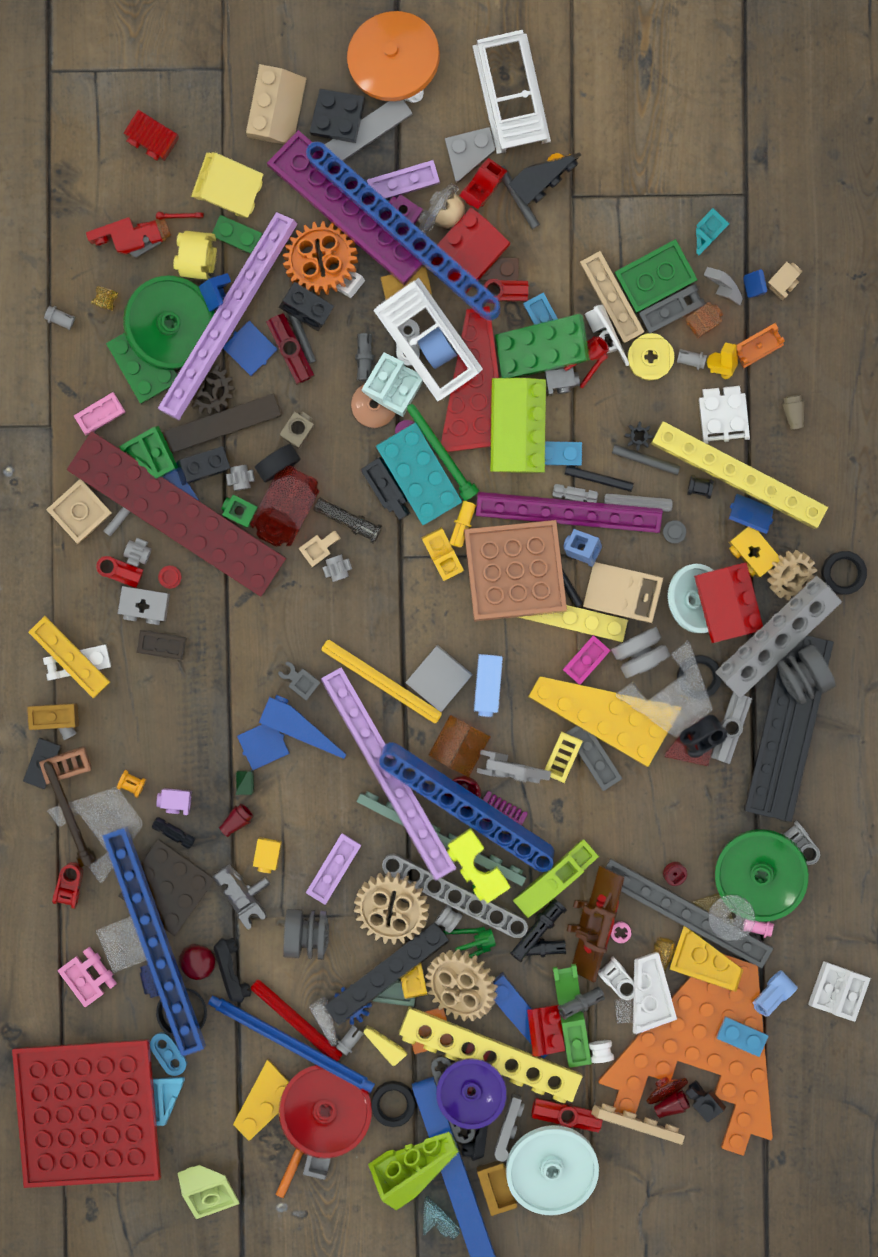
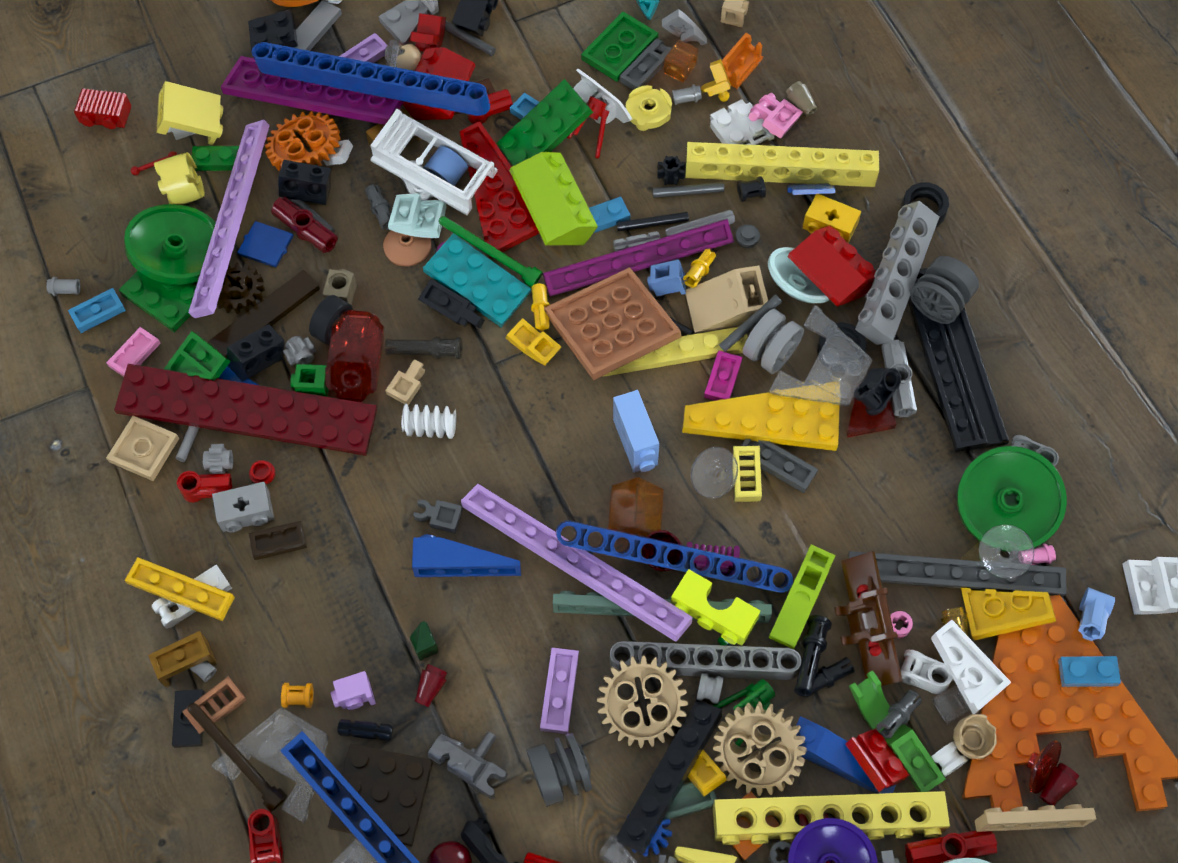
camera: 25 degrees left, 25 degrees down
(81, 356) = (96, 310): none -> dark azure plate
(104, 298) = (103, 252): clear yellow wheel -> none
(129, 238) = (108, 194): red plate -> none
(213, 291) = (208, 202): blue panel -> none
(262, 745) = (428, 598): blue piece -> none
(267, 854) = (479, 705): yellow brick -> none
(275, 105) = (210, 45): tan slope -> none
(323, 594) = (428, 422): none -> white piece
(337, 568) = (432, 392): light grey gear -> none
(381, 681) = (526, 482): yellow axle -> none
(439, 678) = (583, 454): light grey slope -> none
(499, 767) = (701, 500): light grey plate -> none
(528, 744) = (706, 468): none -> clear dish
(561, 380) = (576, 152): flat silver brick -> none
(611, 297) = (568, 62): tan plate -> none
(616, 548) = (699, 268): none -> yellow axle
(626, 1048) = (975, 736): none -> tan hair
(629, 628) = (749, 323): none -> dark grey bar
(675, 874) = (922, 540): dark red tile -> none
(705, 1103) = (1094, 765): black plate -> none
(755, 284) = (712, 19): blue slope -> none
(763, 427) = (779, 117): none -> bright pink plate
(791, 574) = (876, 221): tan gear -> none

